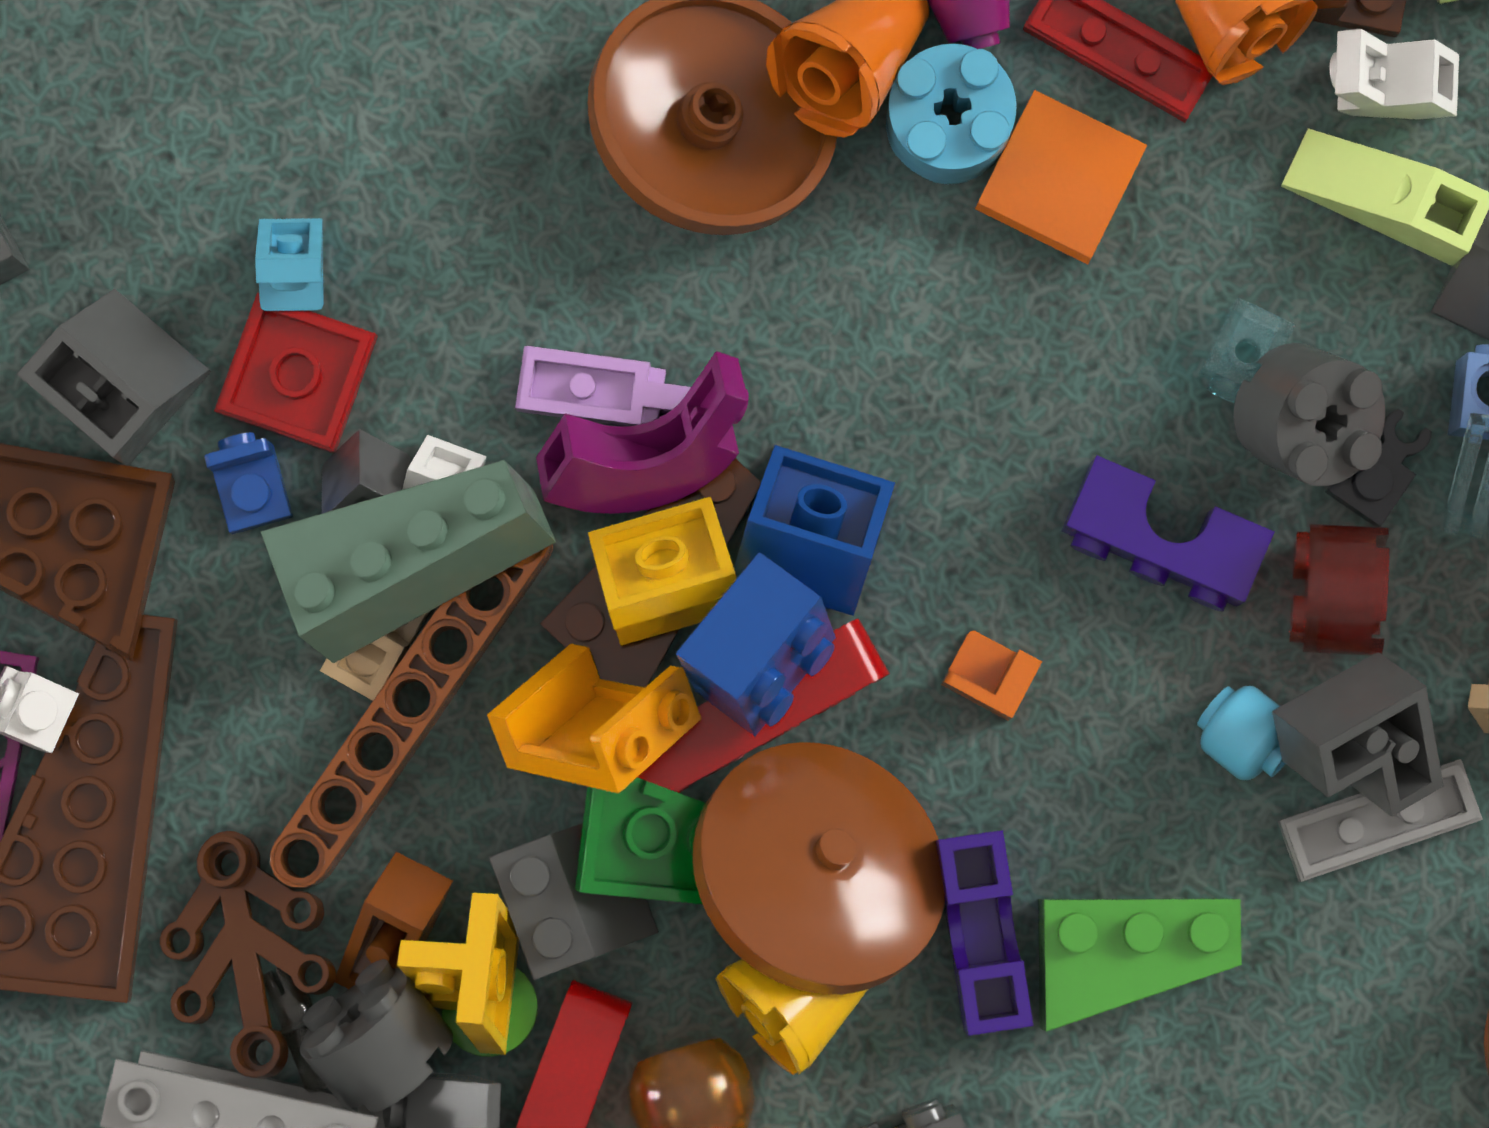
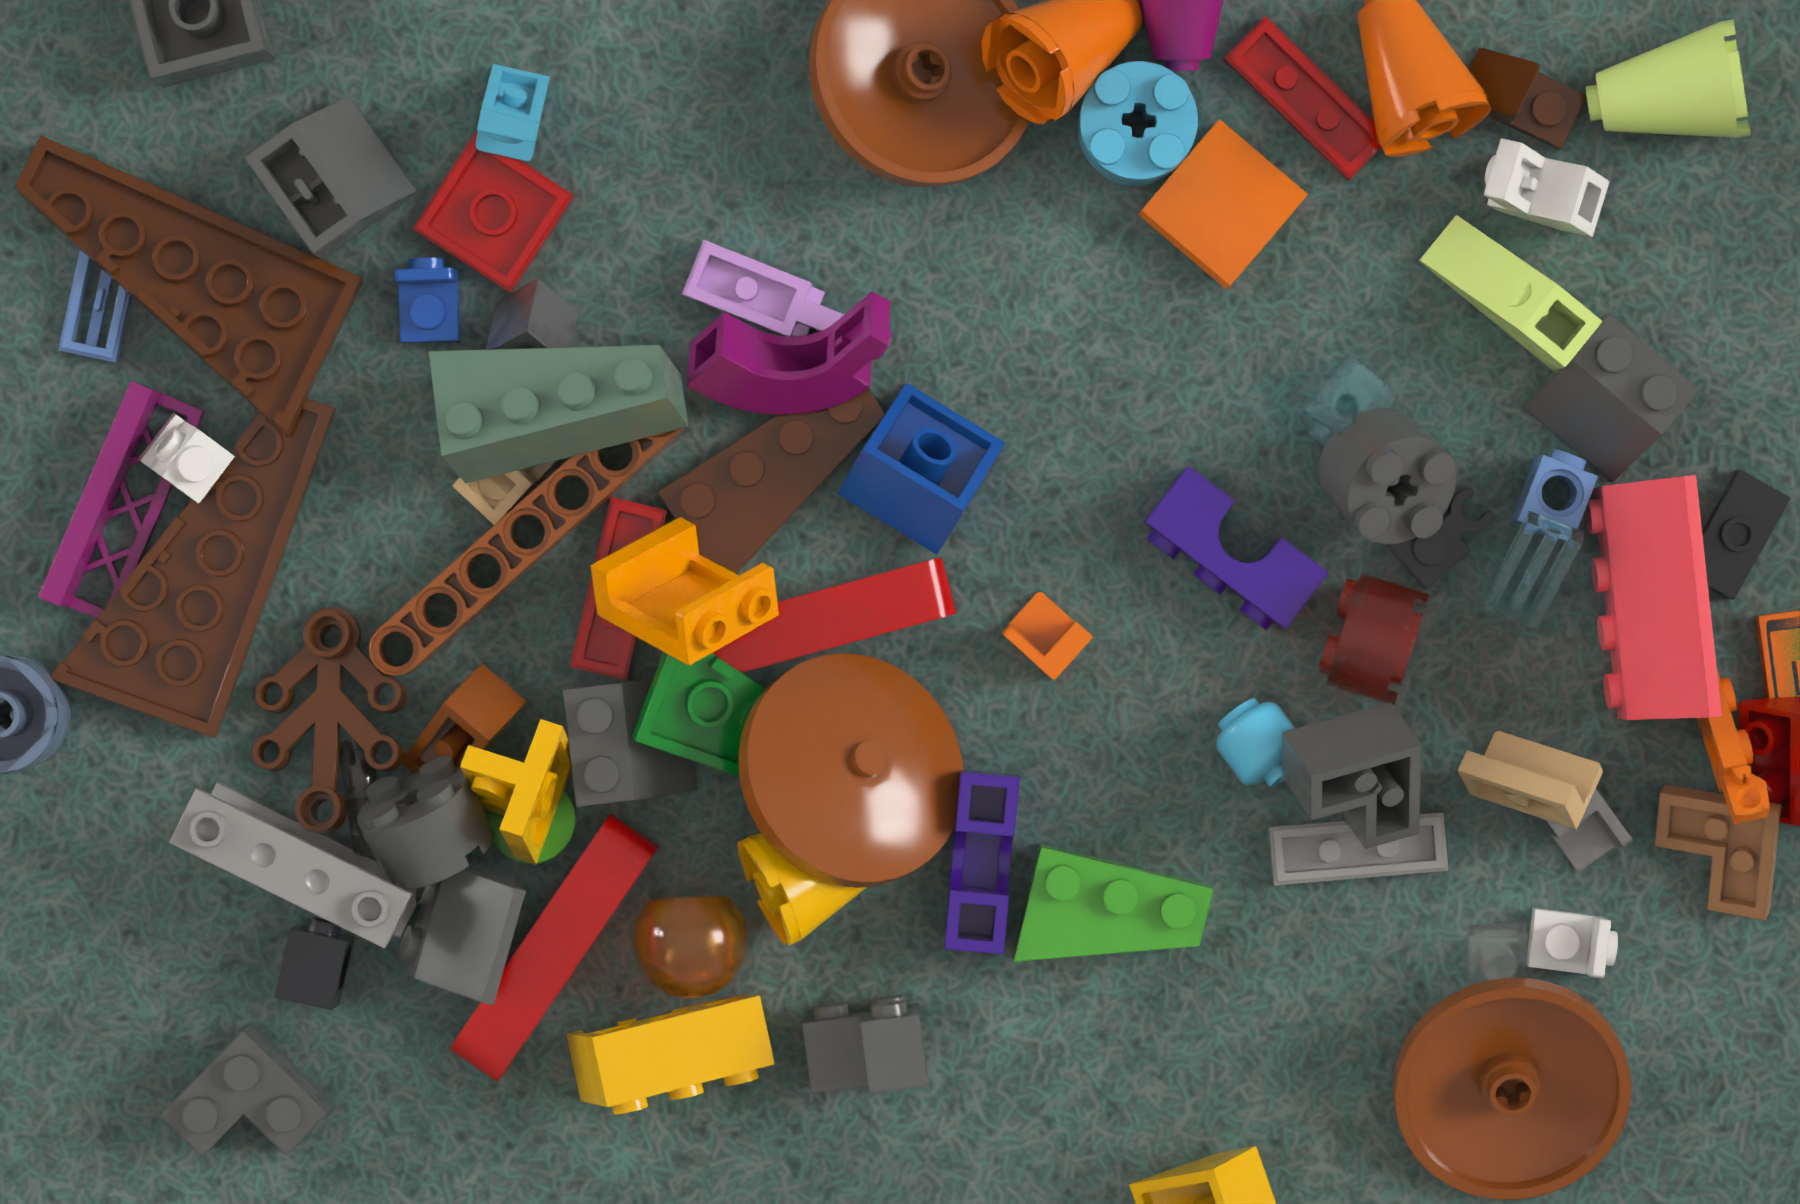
camera: 10 degrees right, 5 degrees up
(439, 460) = (604, 326): white plate -> none
(518, 799) = (599, 643): none -> red tile
(662, 569) = (779, 474): yellow bracket -> none
(758, 645) = (844, 564): blue brick -> none

